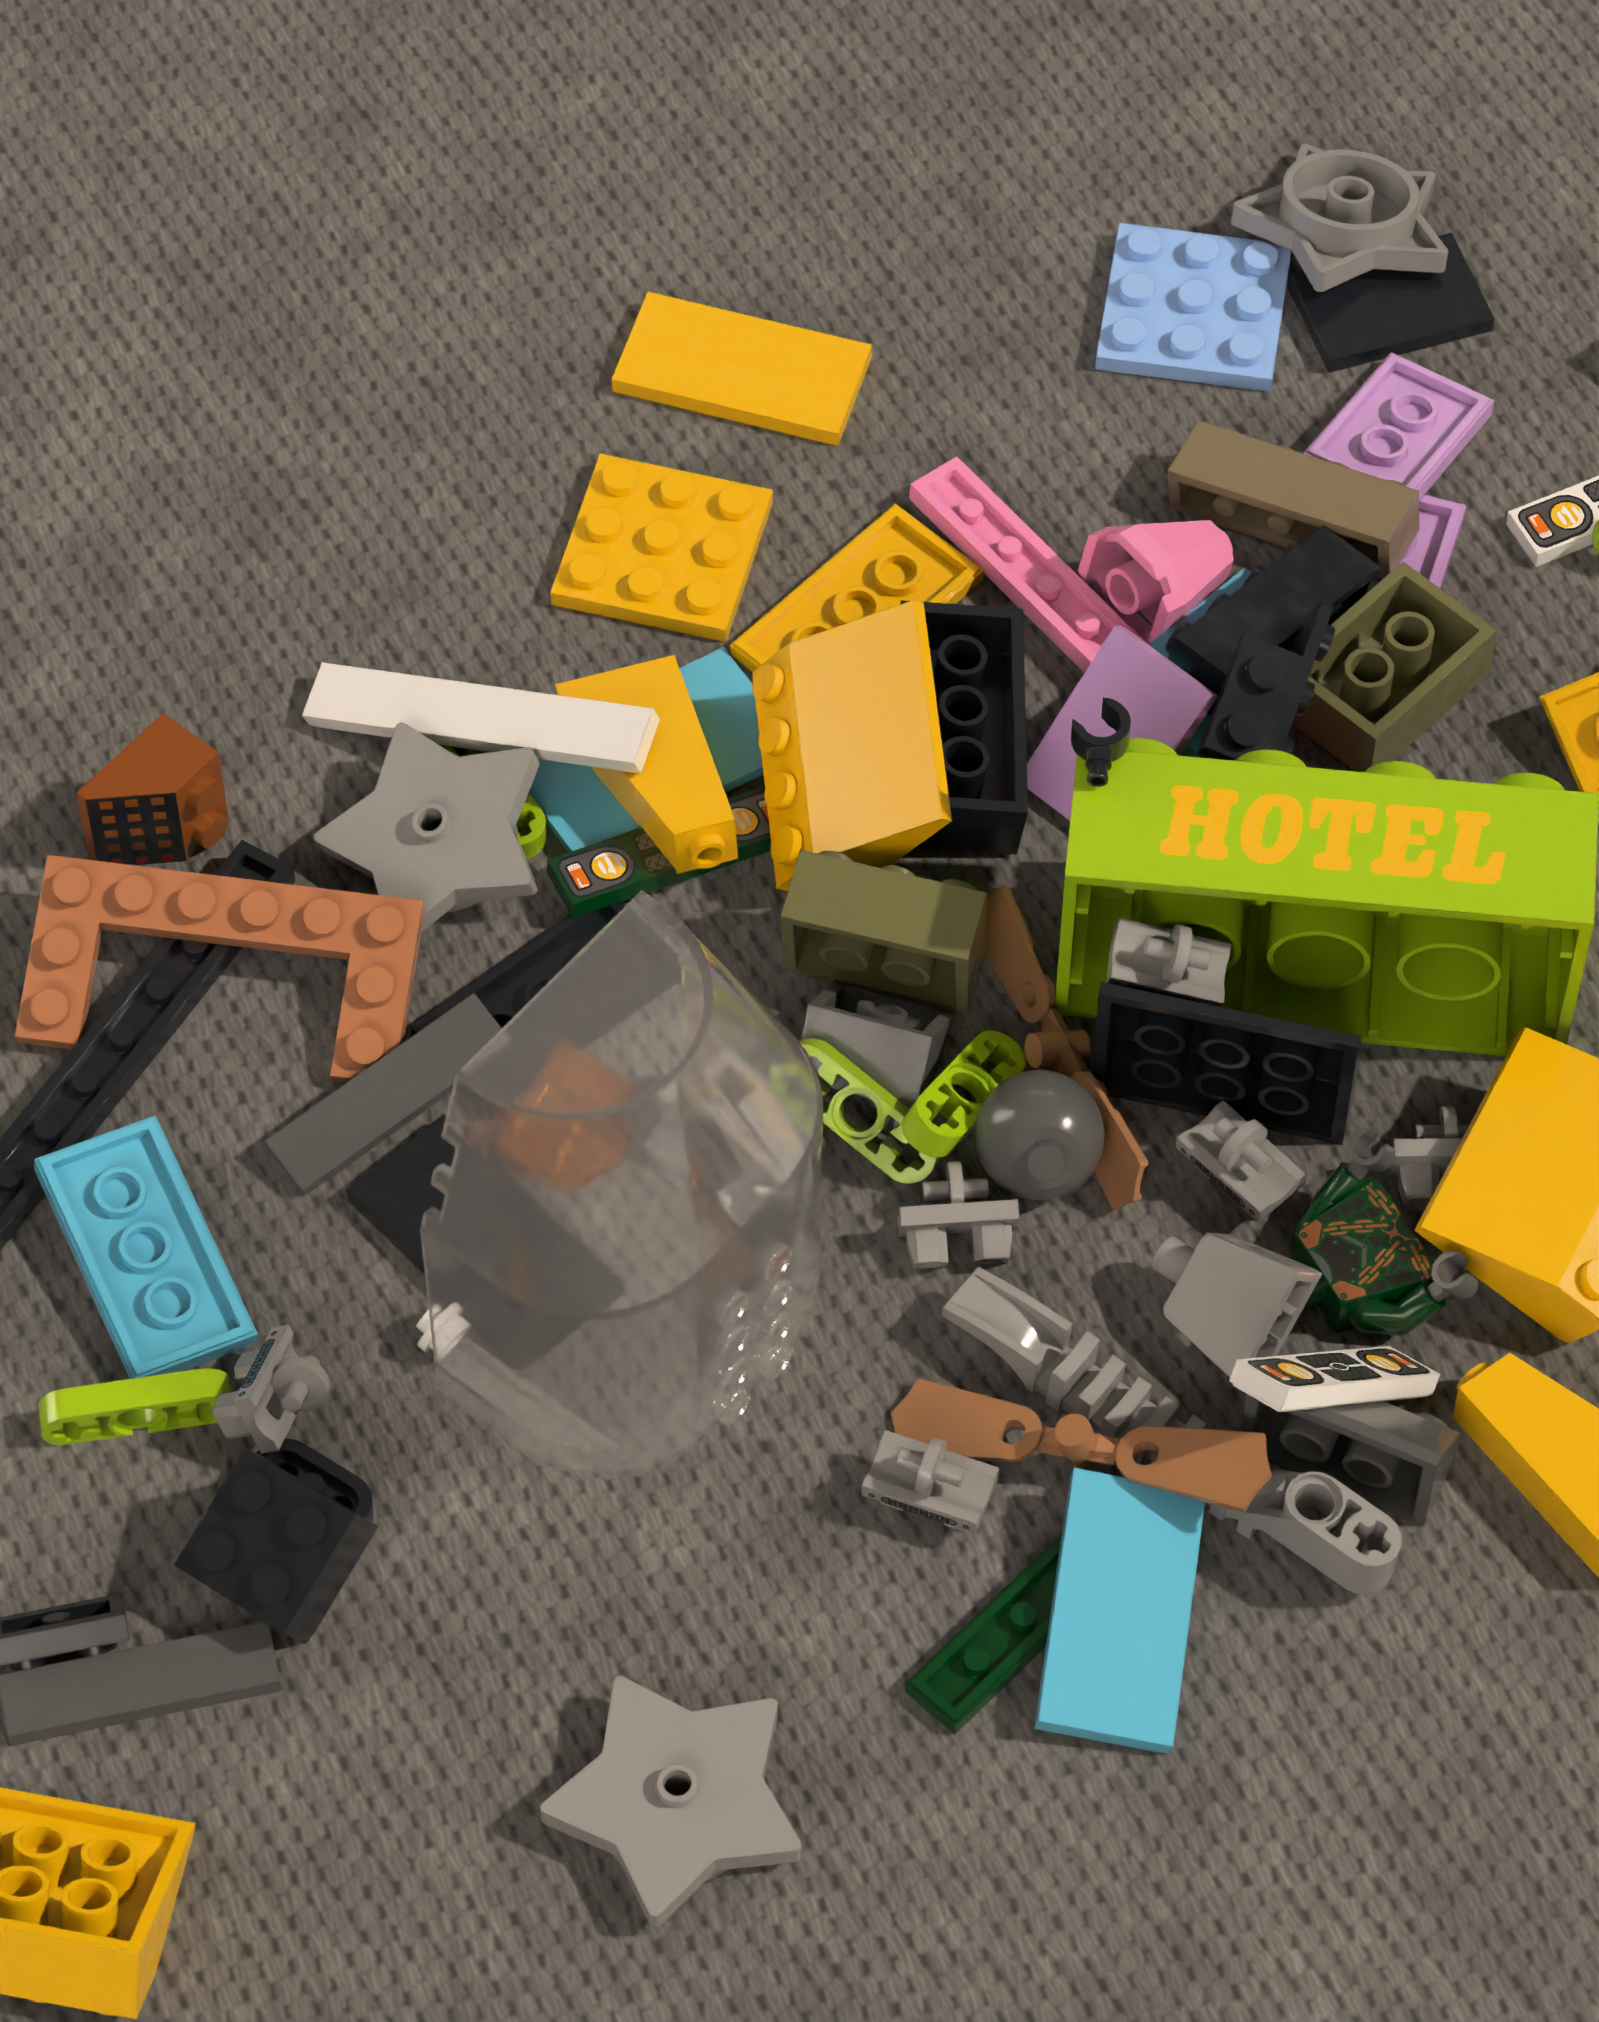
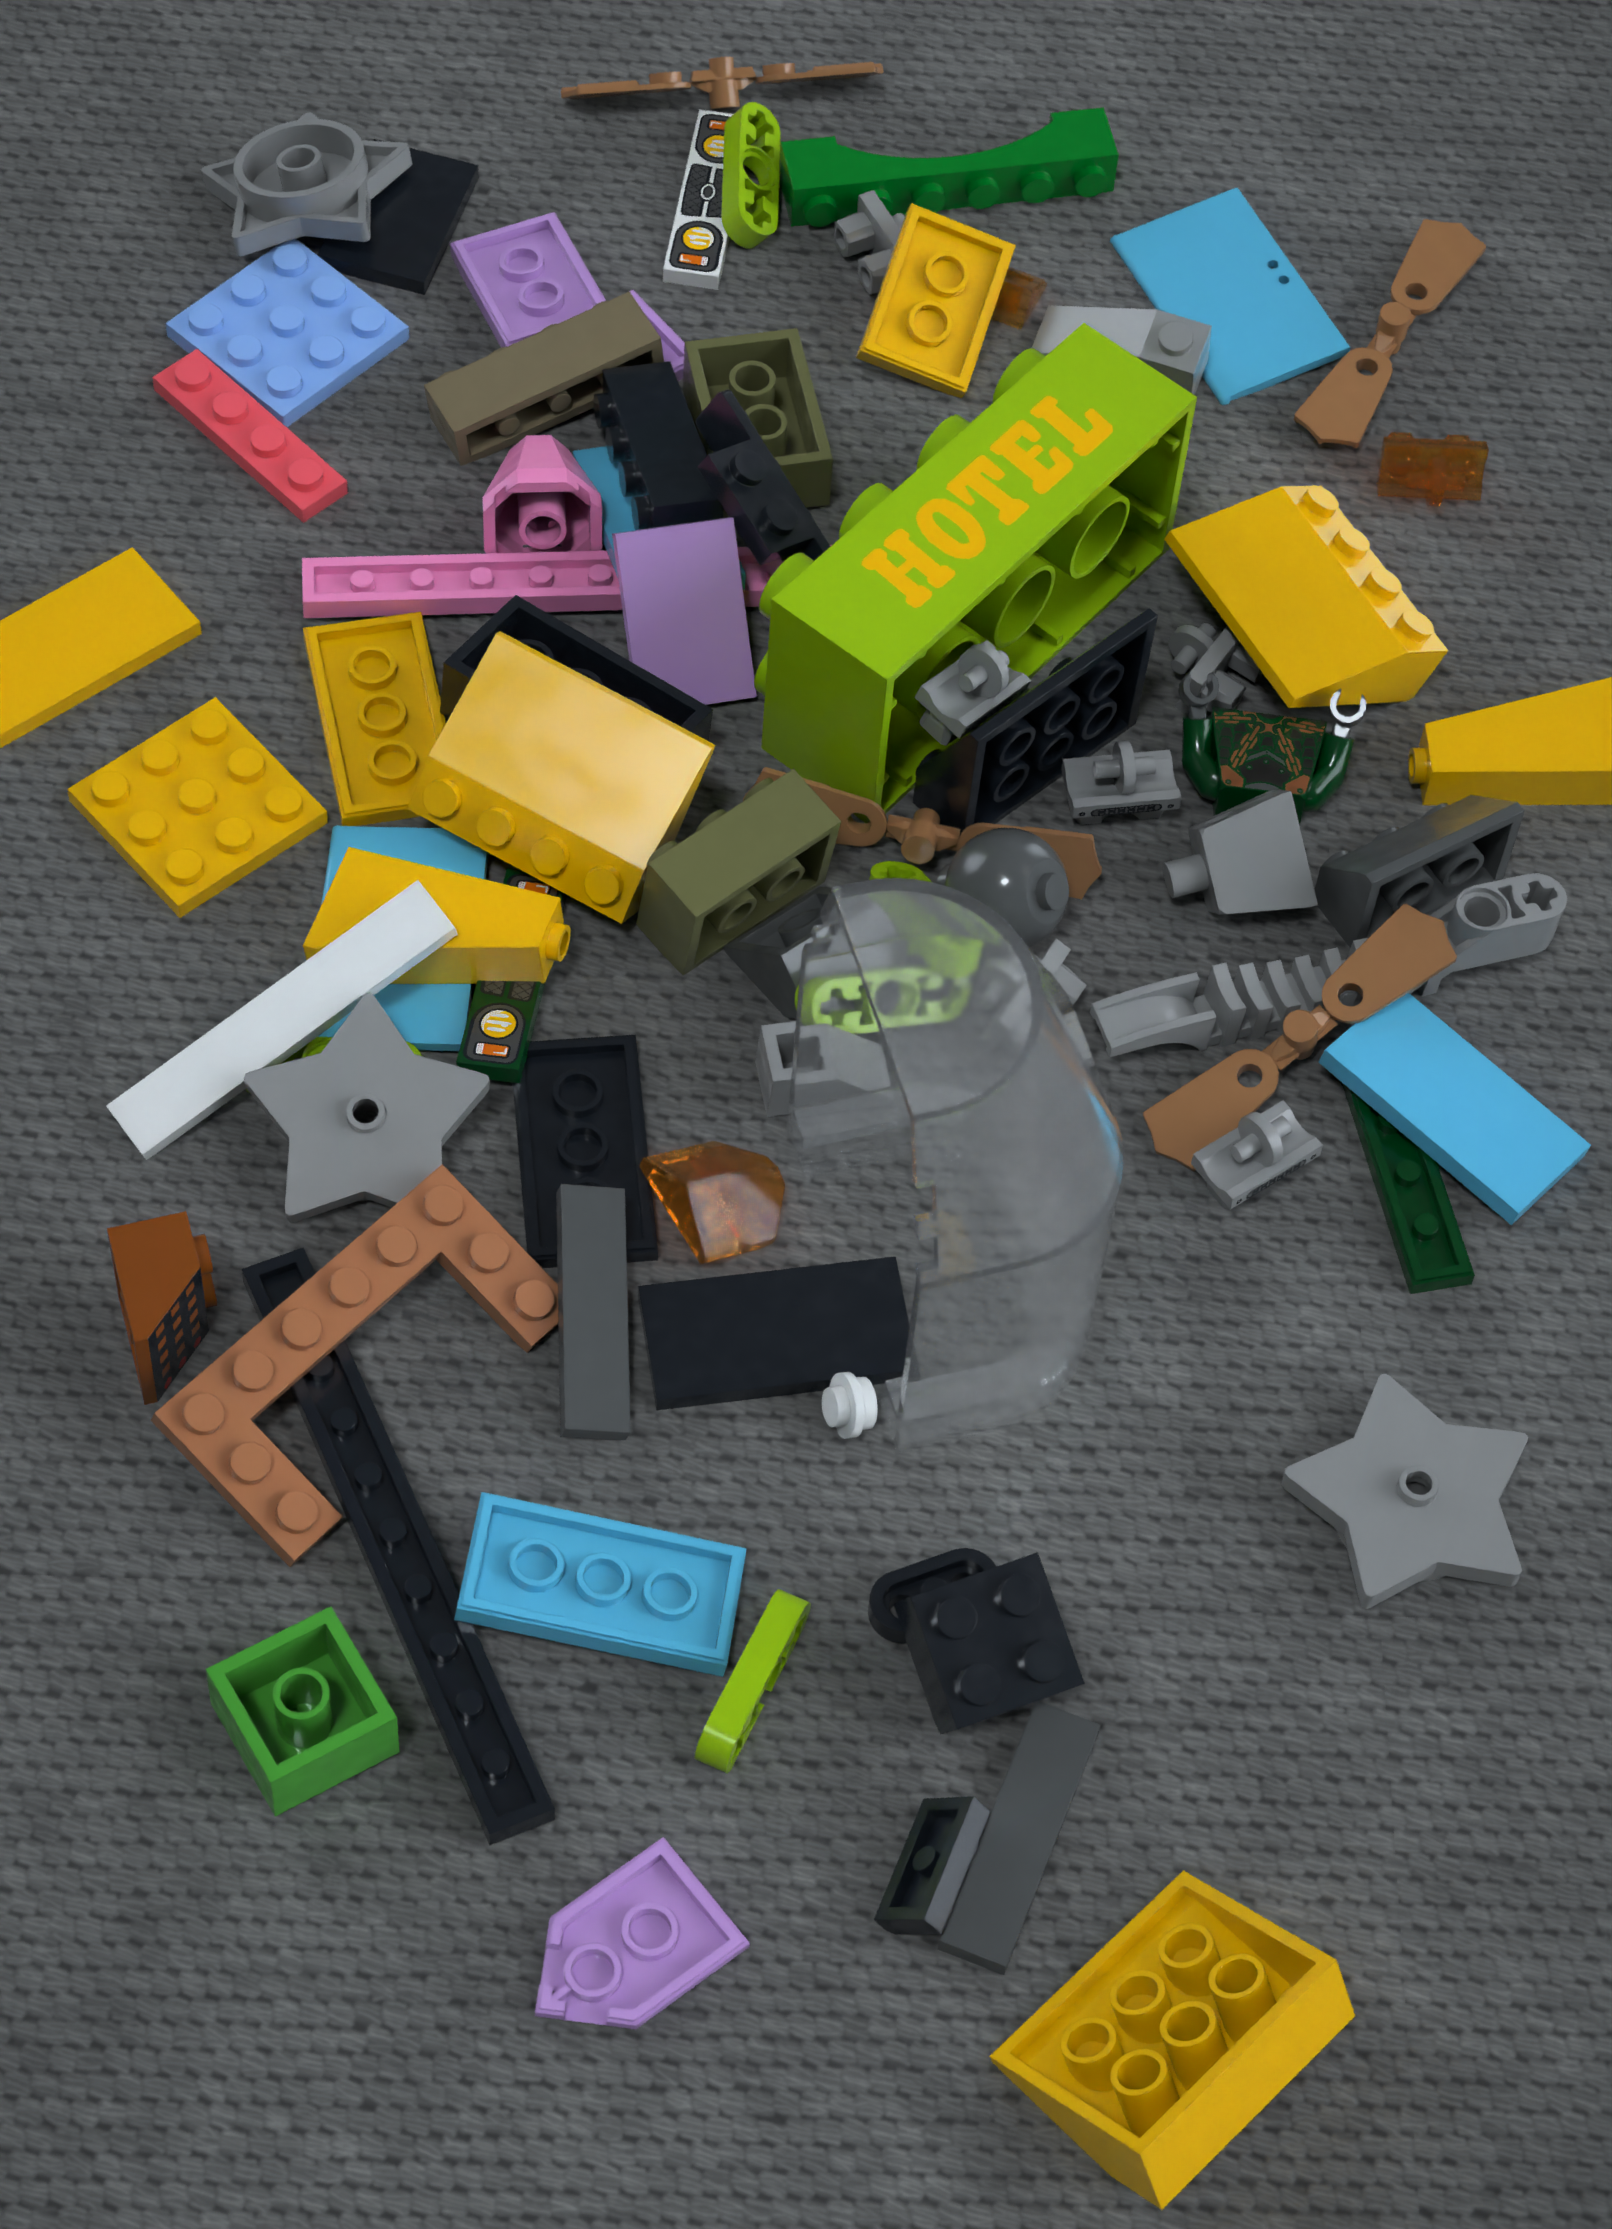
camera: 60 degrees left, 0 degrees up
(271, 1391) = (841, 1539): light grey hips -> none
(1062, 350) = (250, 435): none -> coral plate
(1102, 751) = (791, 586): black piece -> none
(1333, 1378) = (1389, 832): white tile -> none

